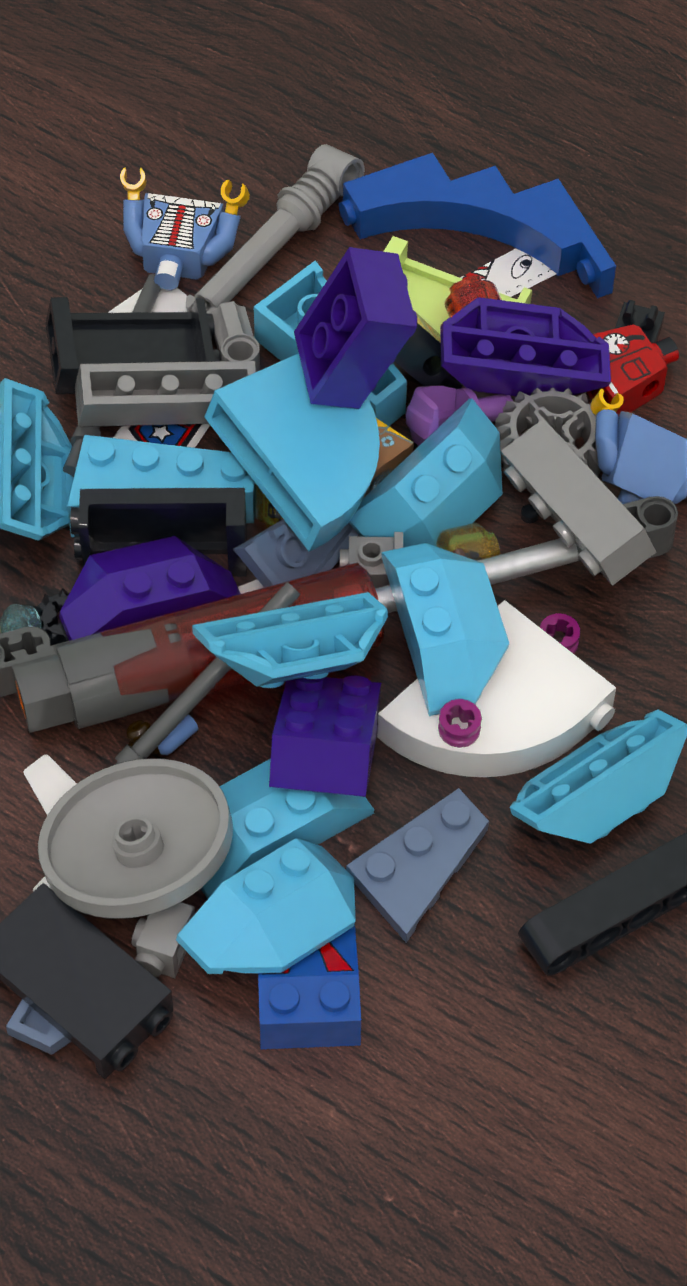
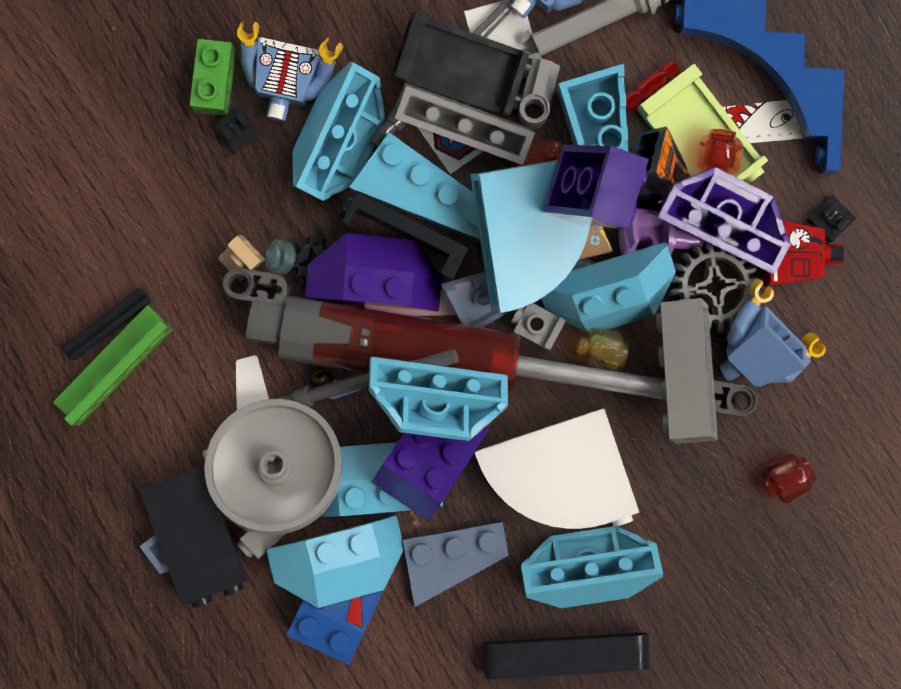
camera: 25 degrees right, 30 degrees up
(447, 621) = (553, 412): medium azure wedge -> none
(452, 733) = (513, 498): magenta bush -> none
(565, 624) = (631, 451): magenta bush -> none

